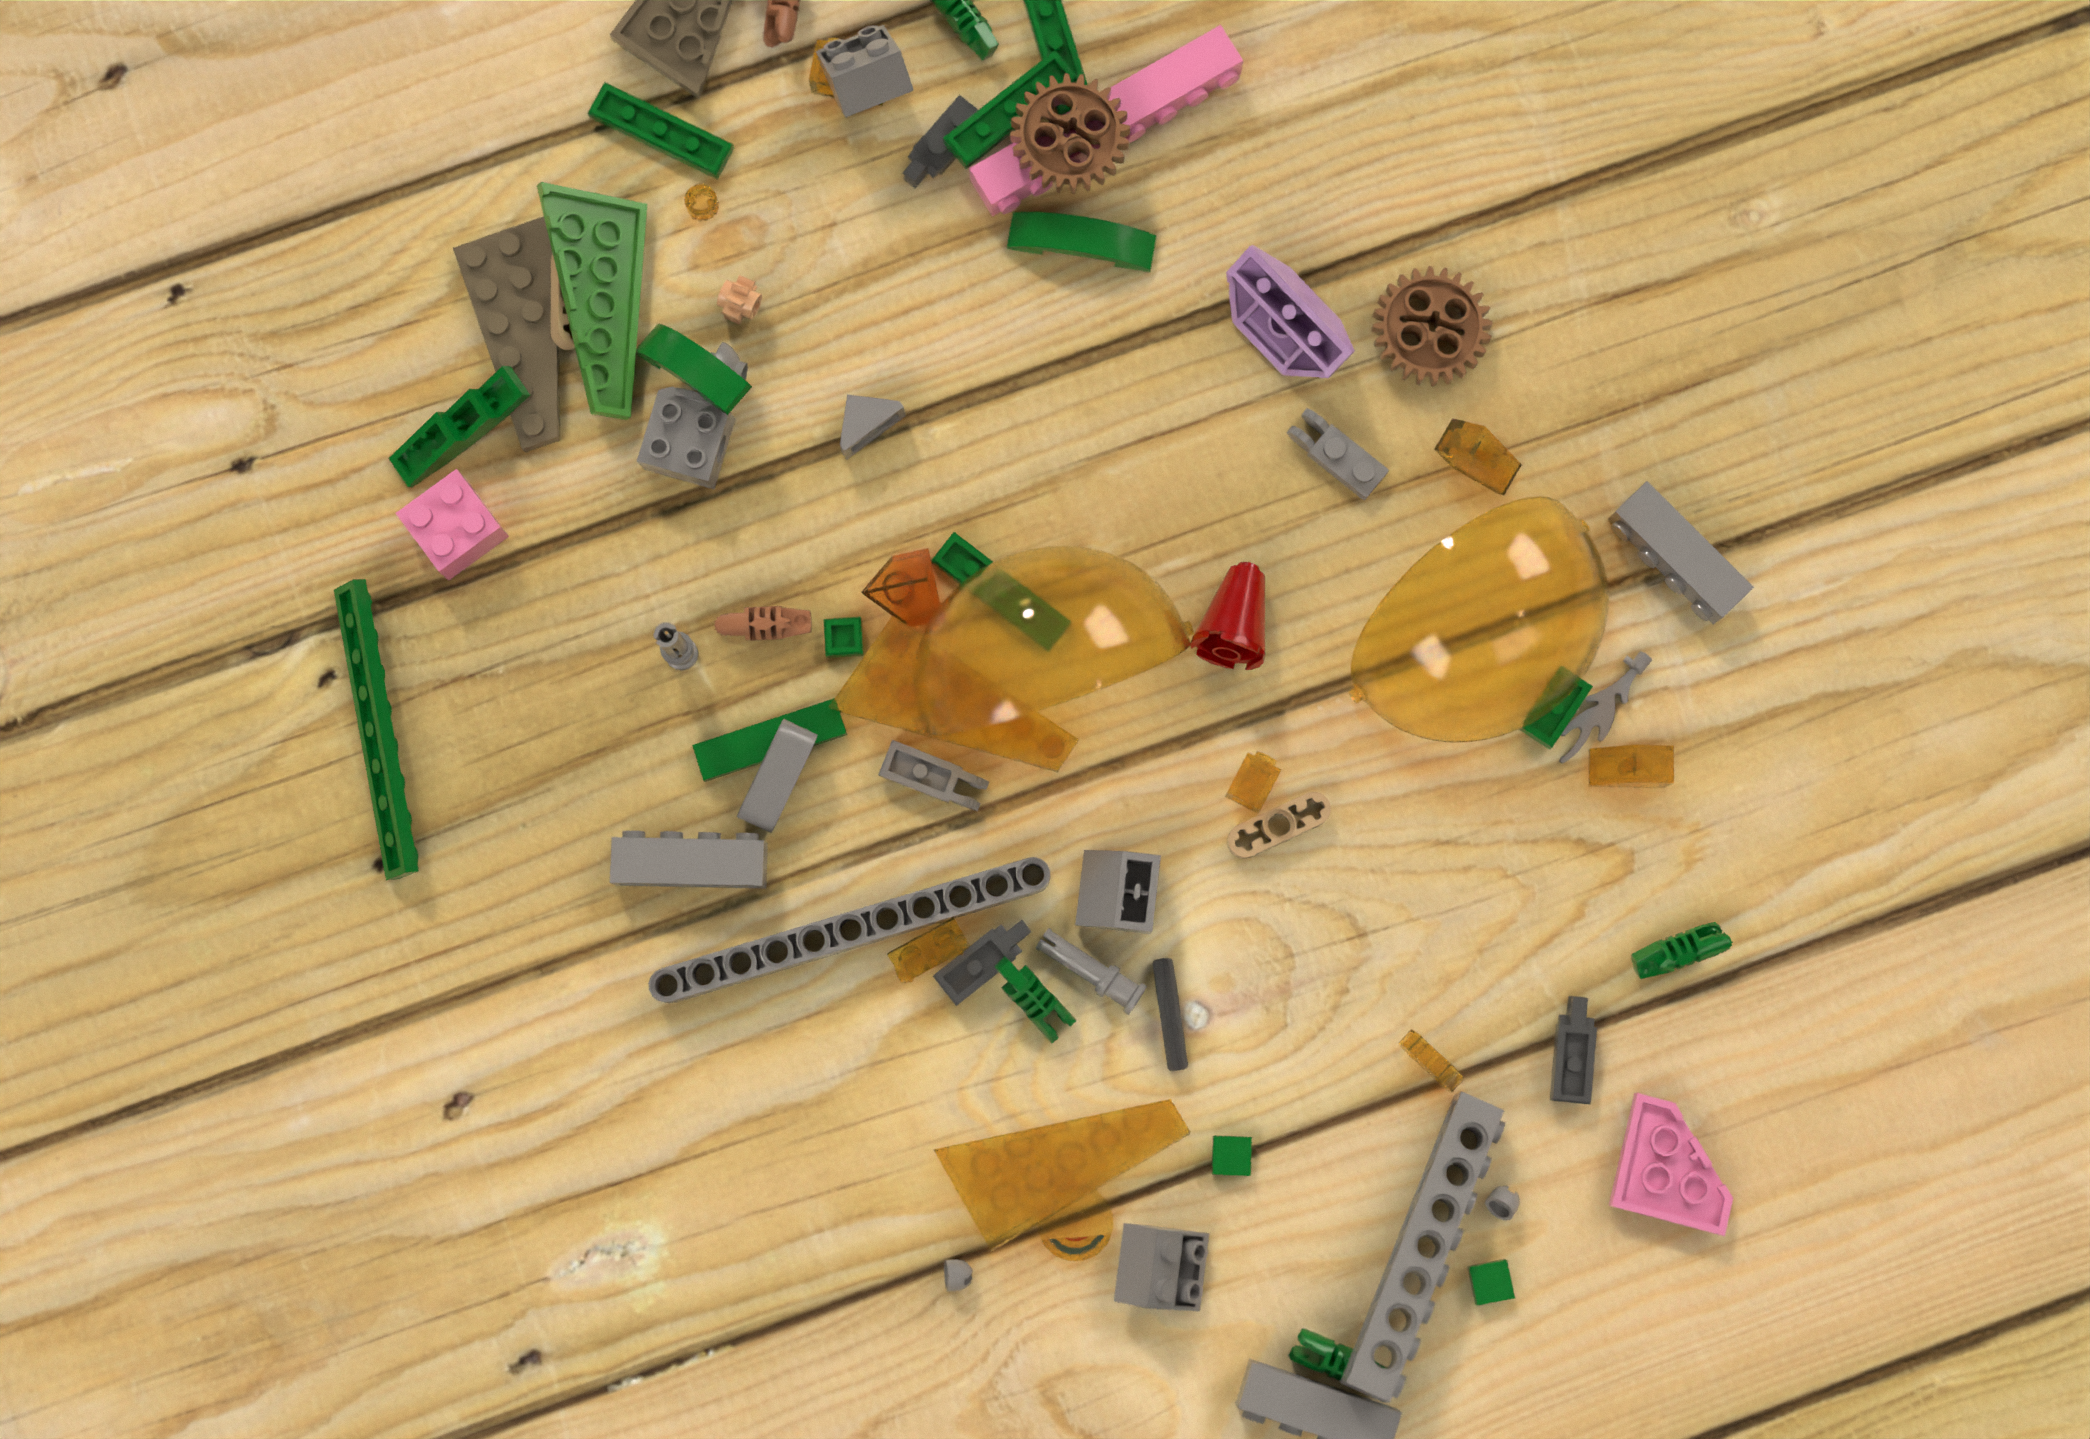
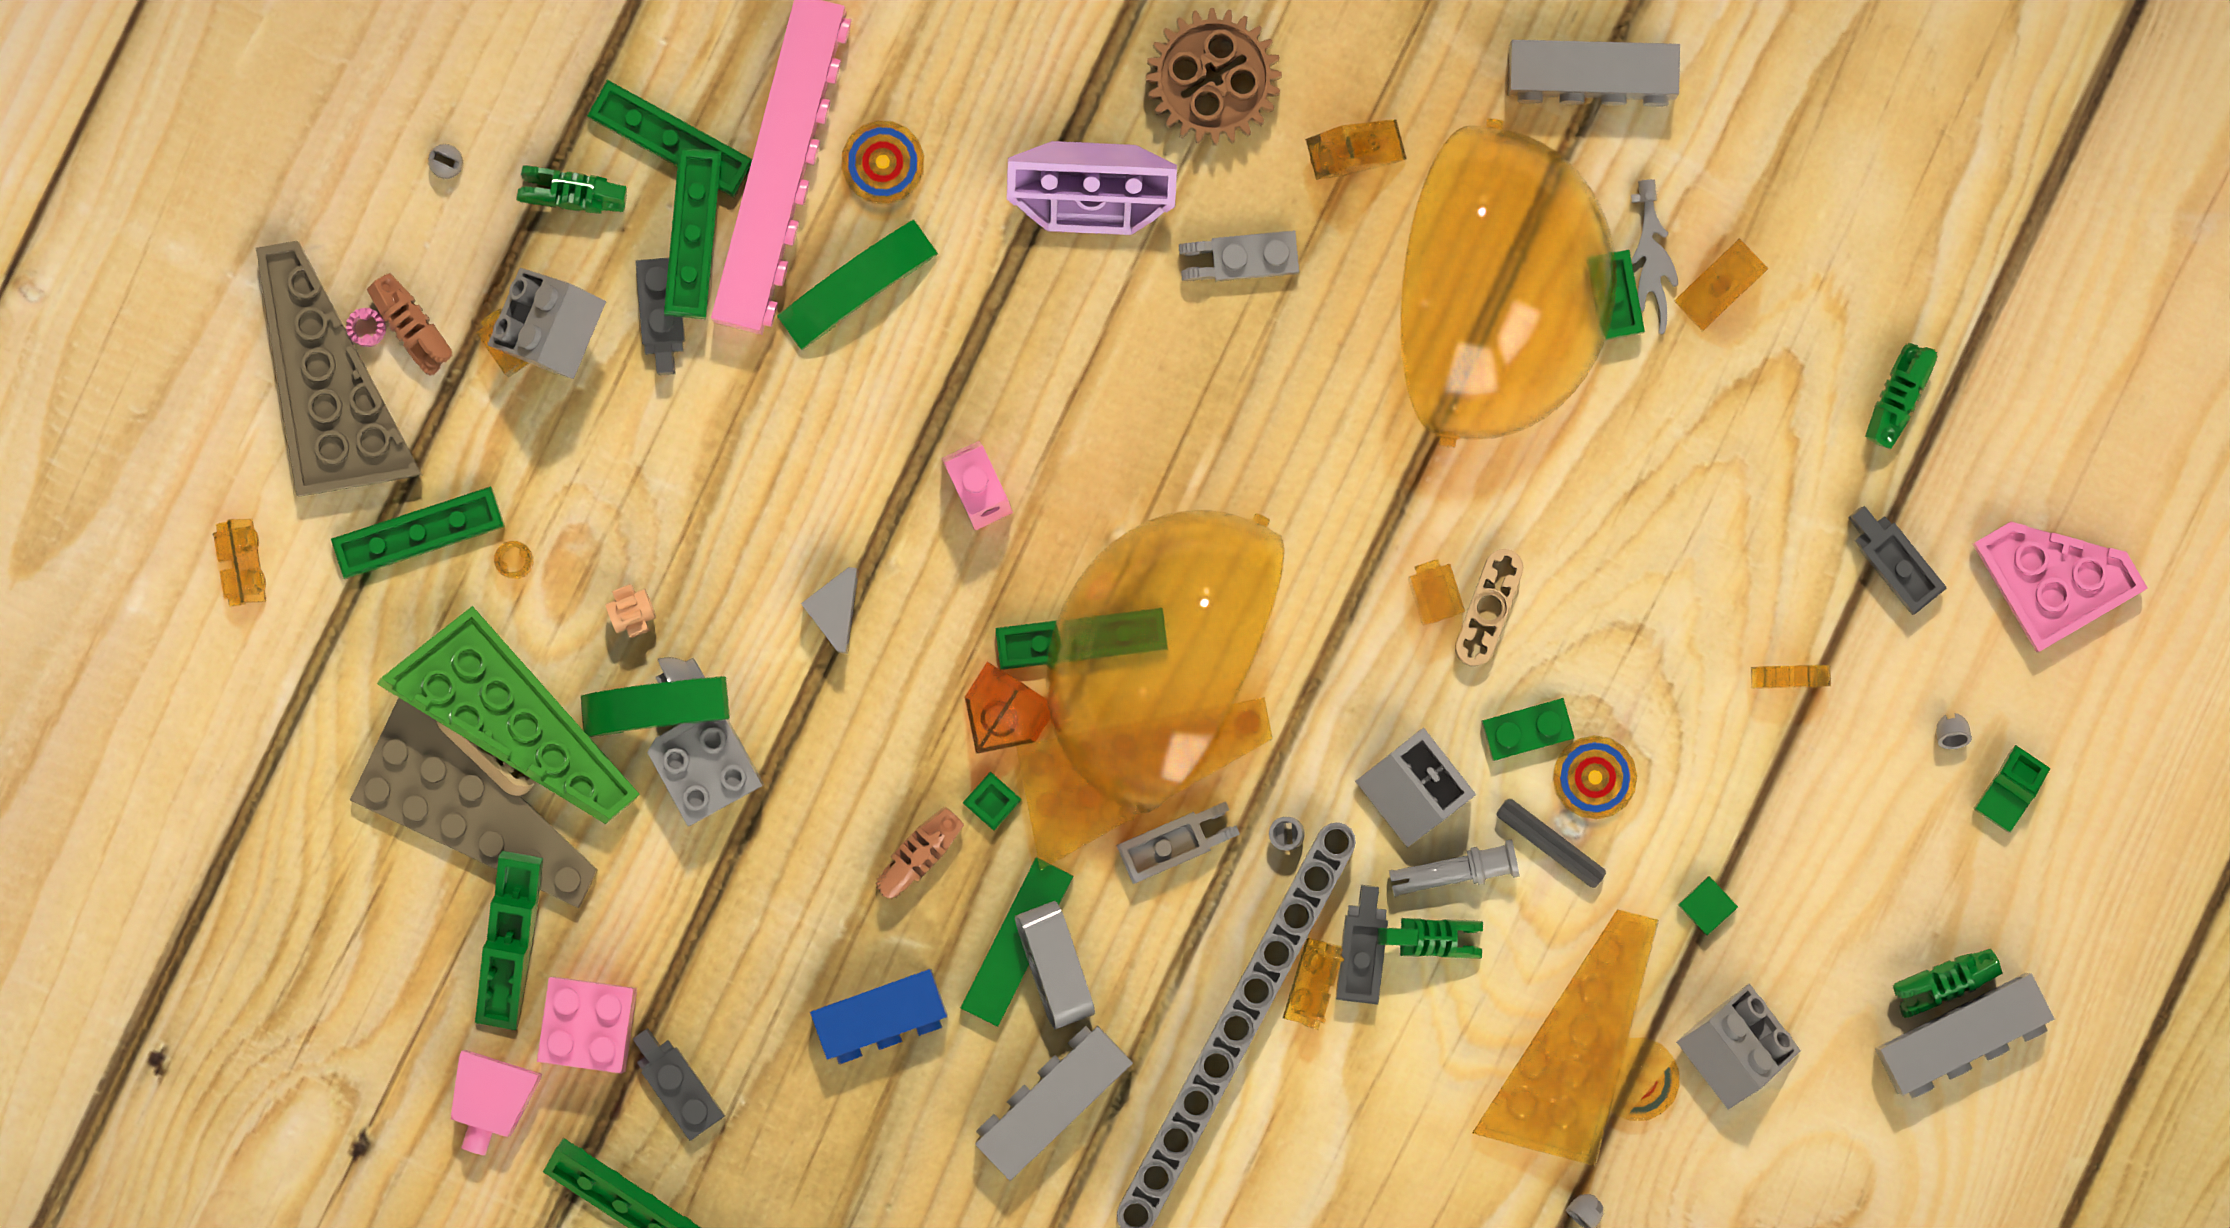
camera: 45 degrees left, 5 degrees up
(348, 511) = (490, 1098): none -> bright pink torso
(470, 618) = (677, 1085): none -> dark grey hinge
(544, 35) = (239, 543): none -> clear yellow hinge
(636, 699) = (880, 1016): none -> blue brick
(677, 640) = (883, 939): light grey pin -> none
(1002, 835) = (1278, 833): none -> light grey hinge
(1030, 430) = (977, 485): none -> bright pink torso
(1086, 106) = (779, 247): medium nougat gear -> none
(1171, 183) = (883, 162): none -> tile
(1227, 927) = (1528, 729): none -> green plate
(1235, 620) = (1293, 477): red cone -> none
(1240, 1000) = (1594, 777): none -> tile
(1361, 1370) = (1970, 972): light grey brick -> none
(1522, 1275) = (2022, 774): none -> green tile

